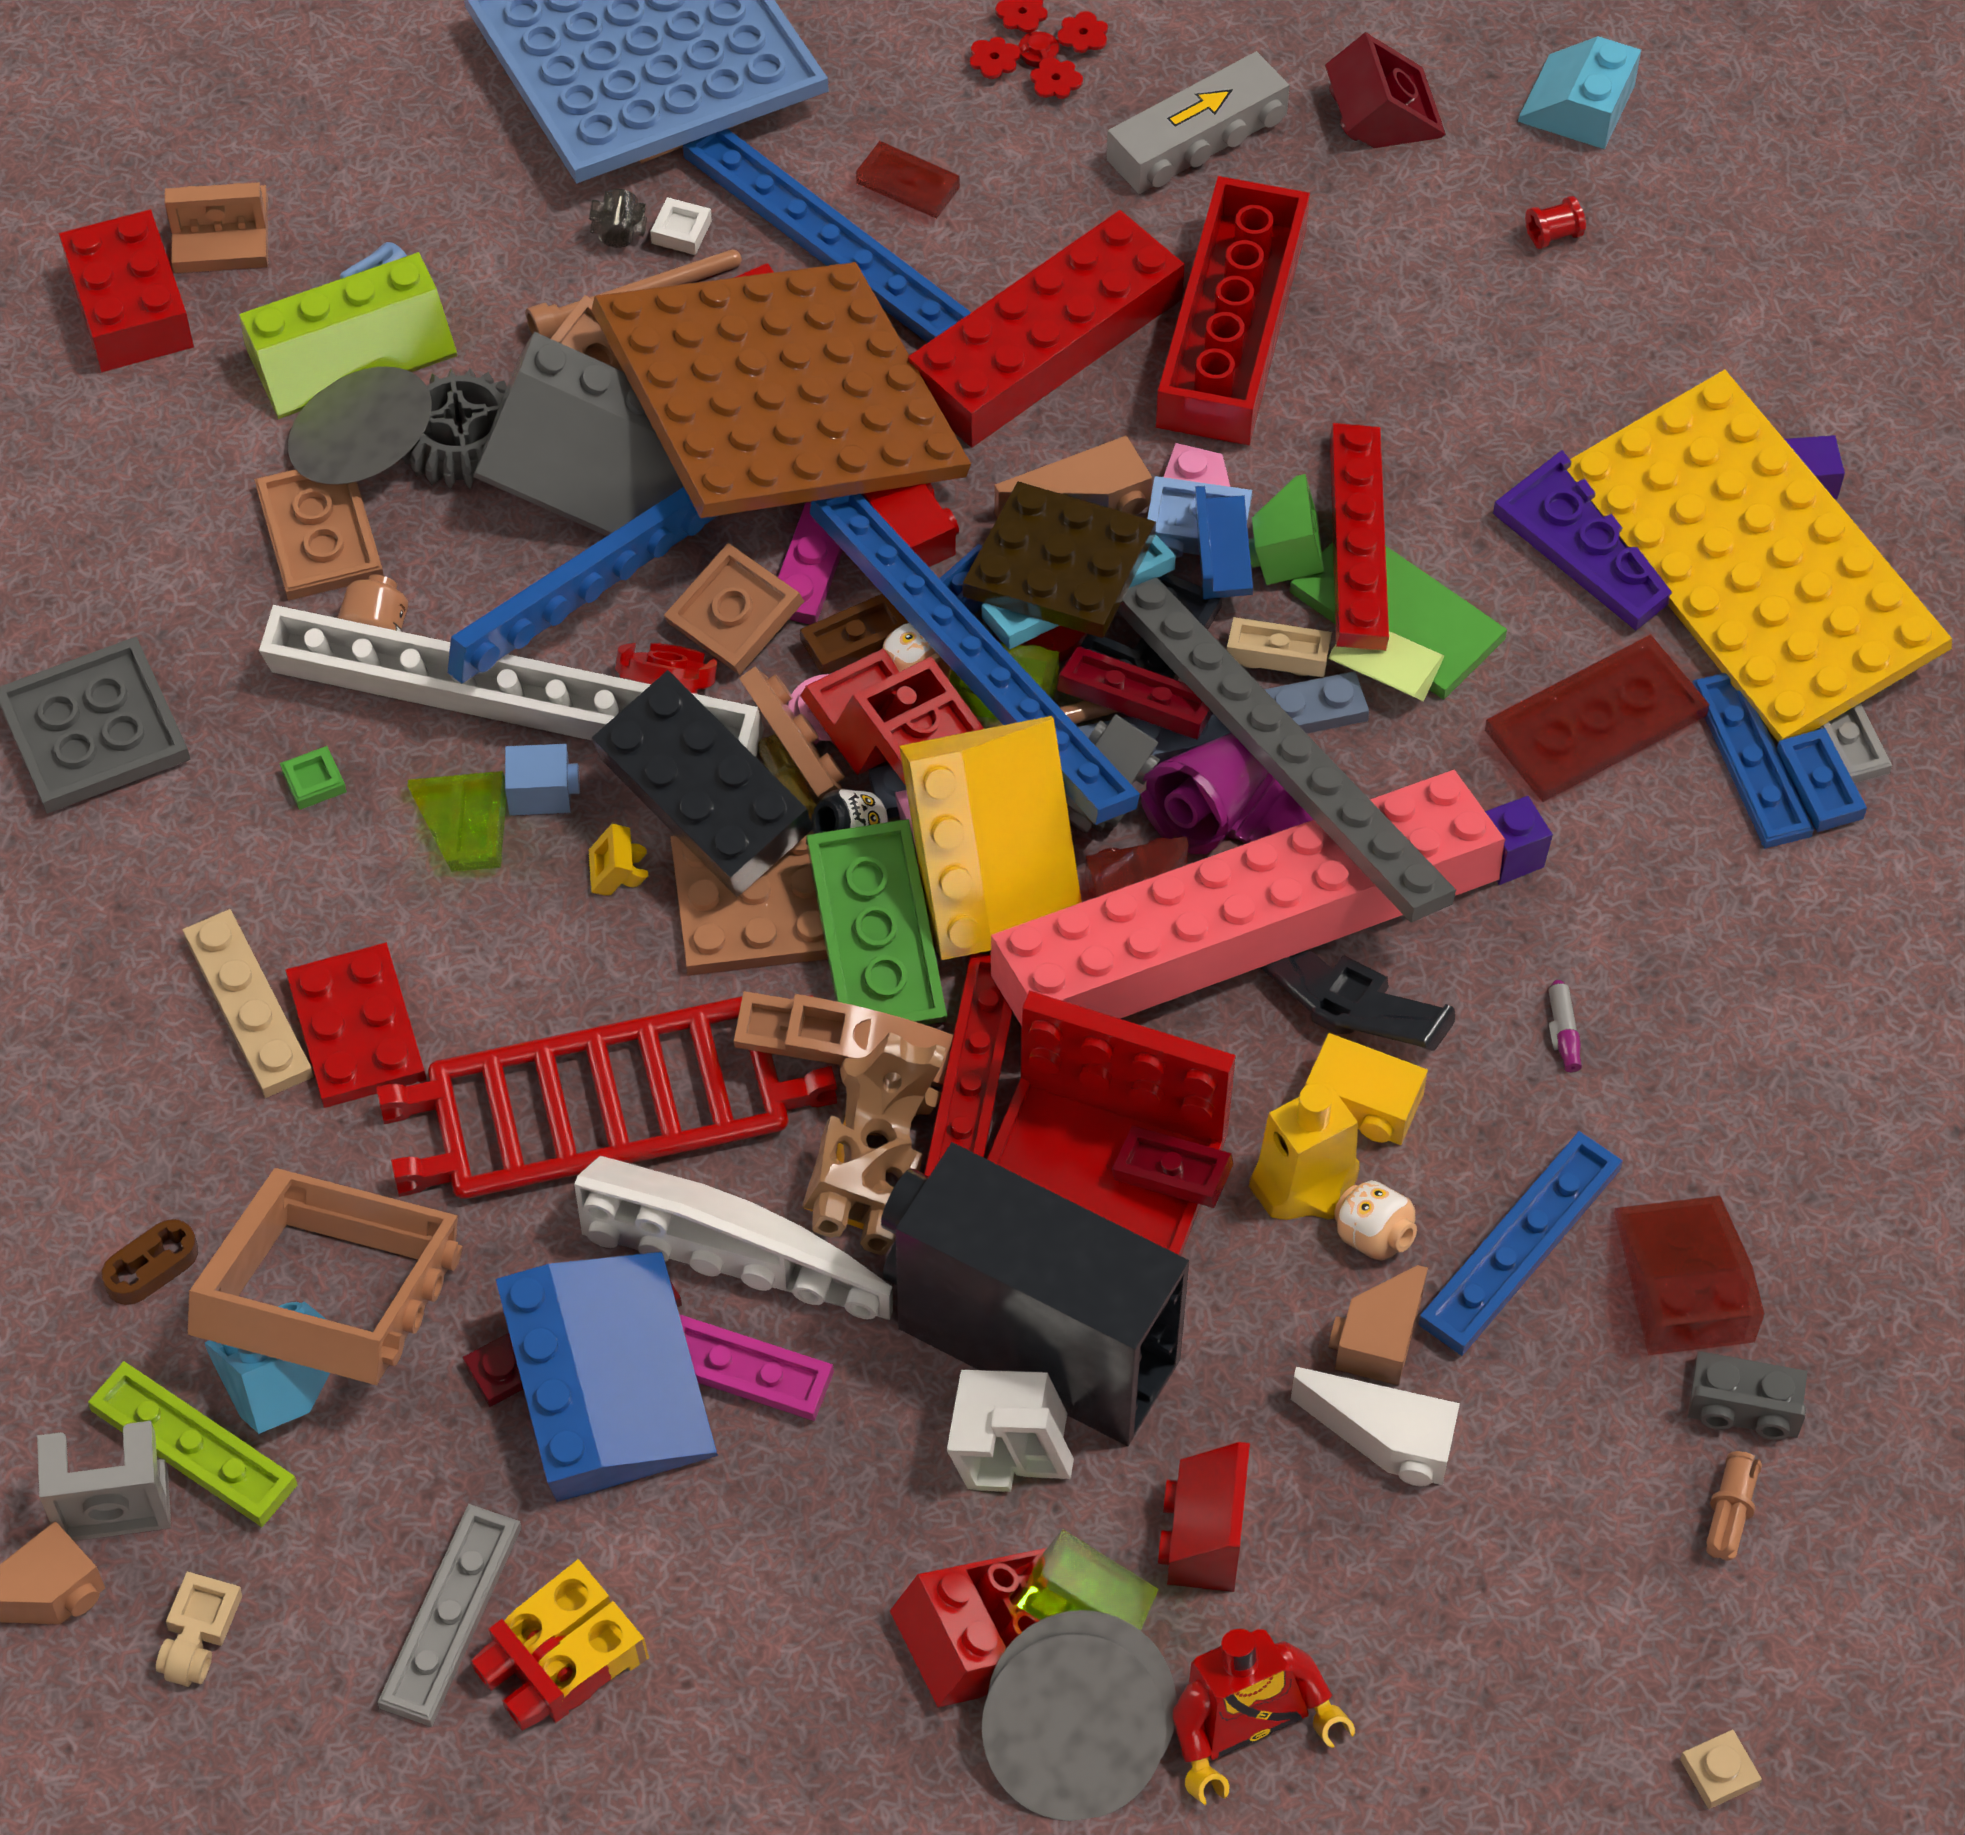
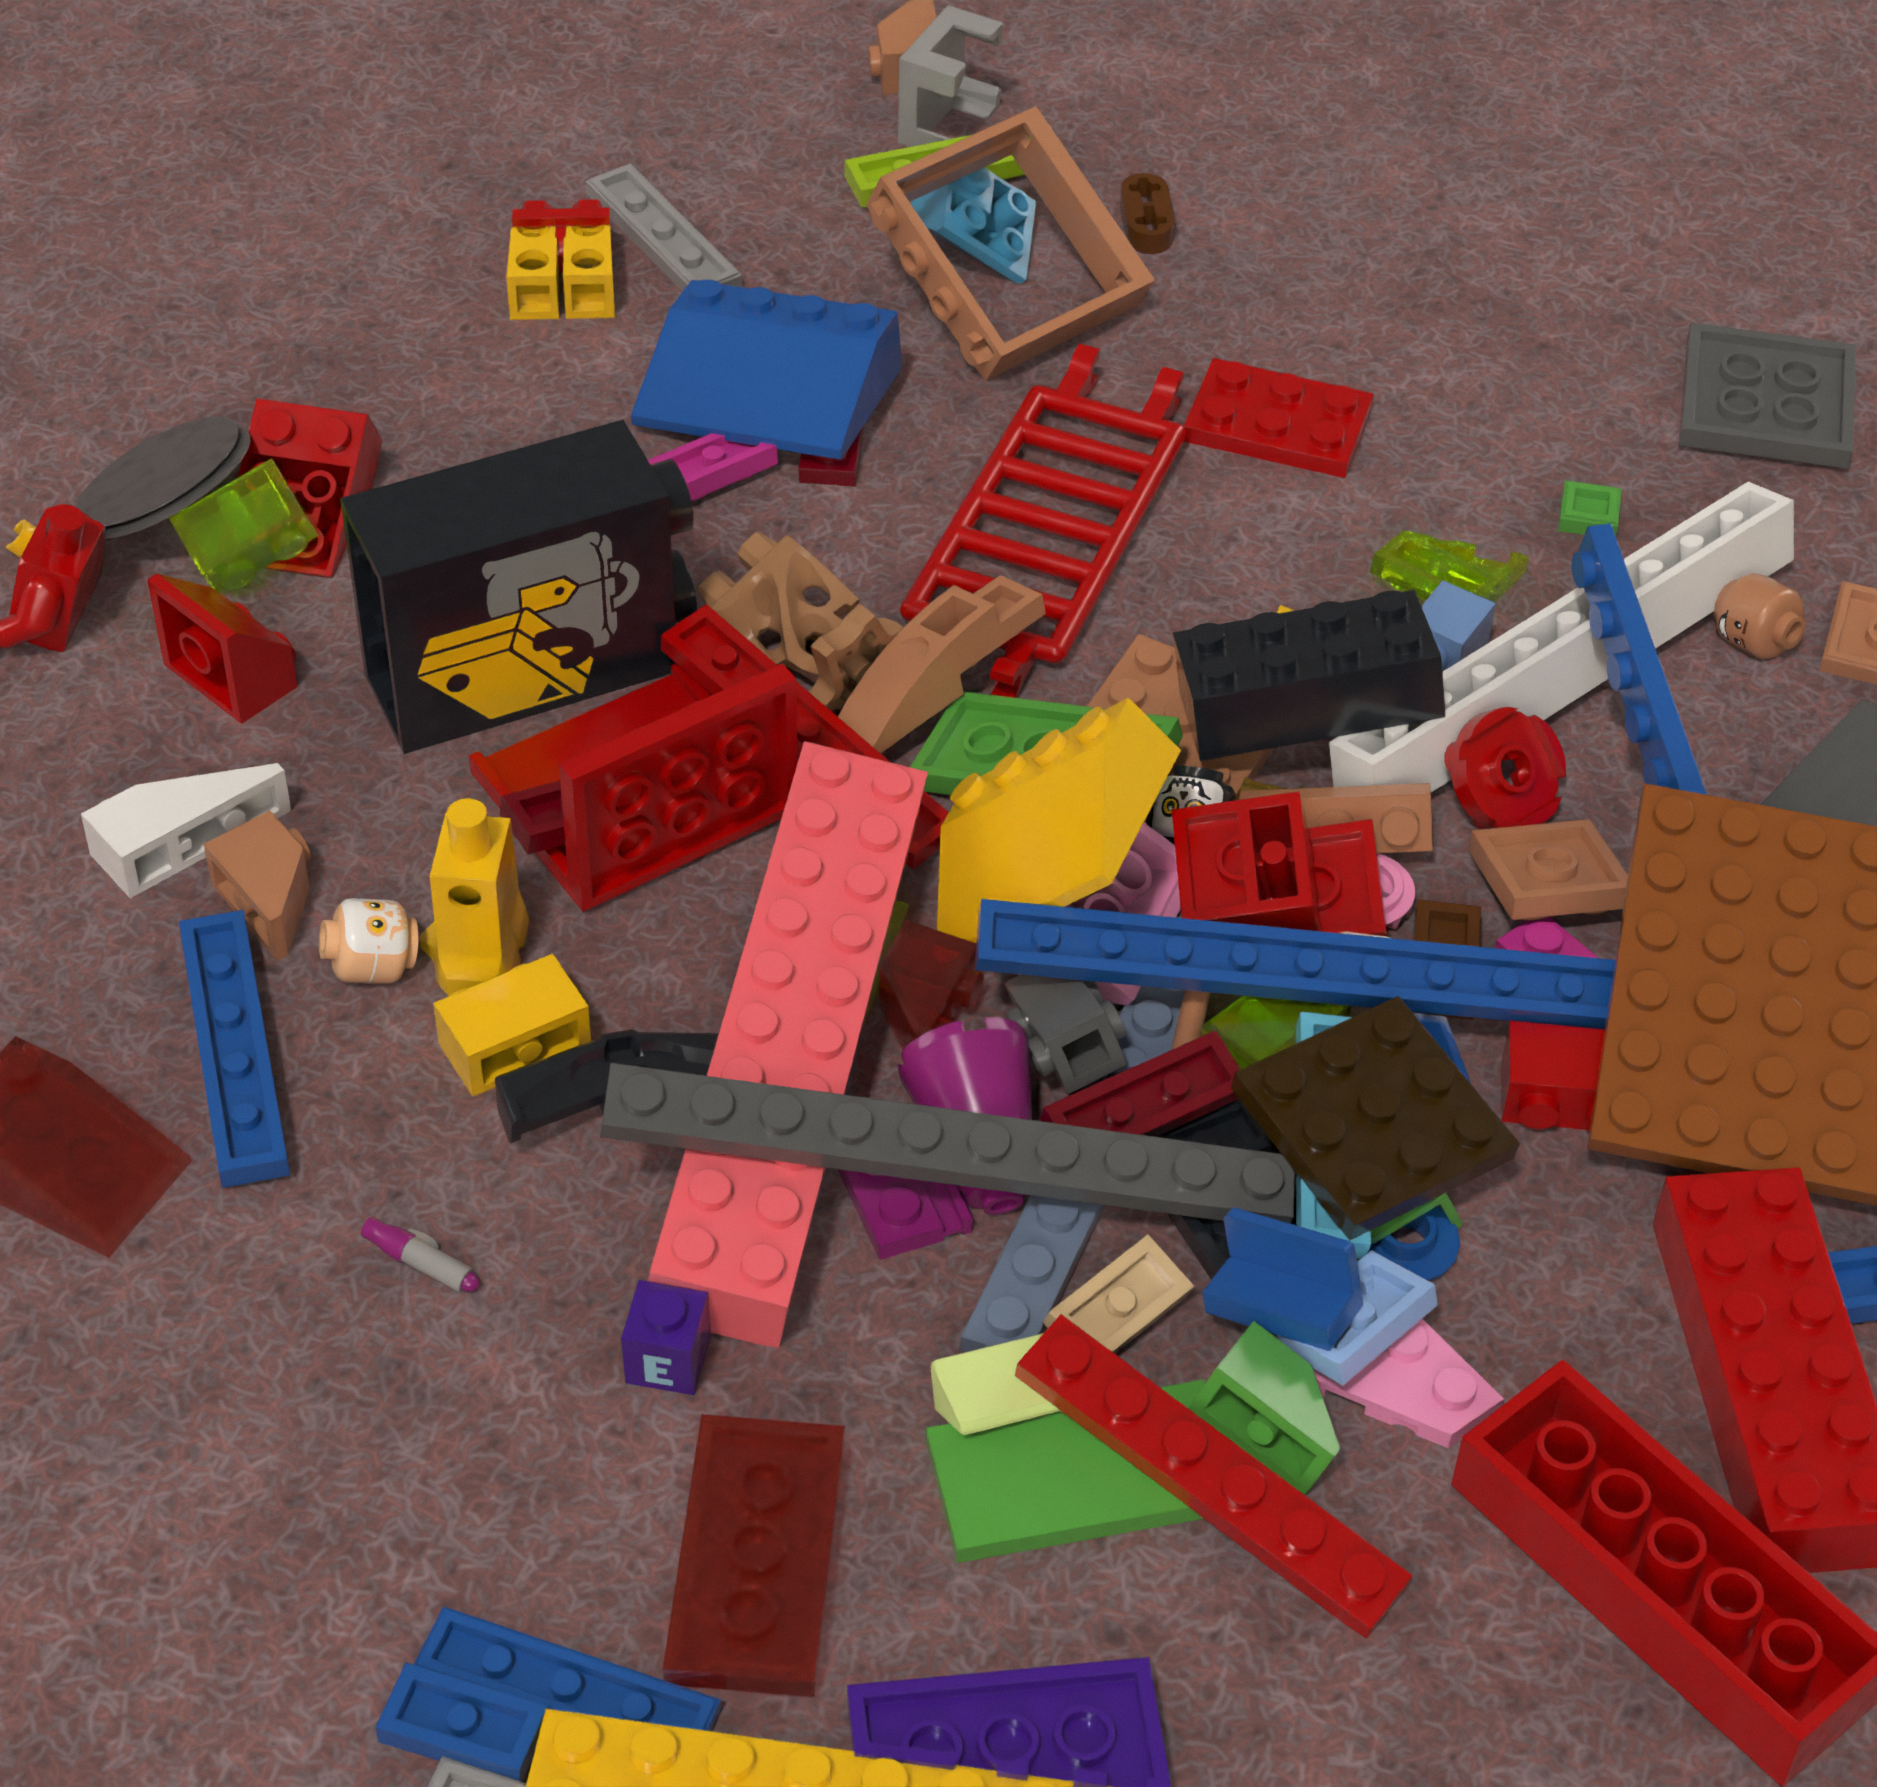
camera: 125 degrees right, 10 degrees down
(199, 1614) = (793, 110): tan plate -> none
(248, 1003) = (1369, 366): tan plate -> none
(721, 1235) = (843, 485): white wedge -> none
(1102, 475) = (1492, 1266): nougat slope -> none

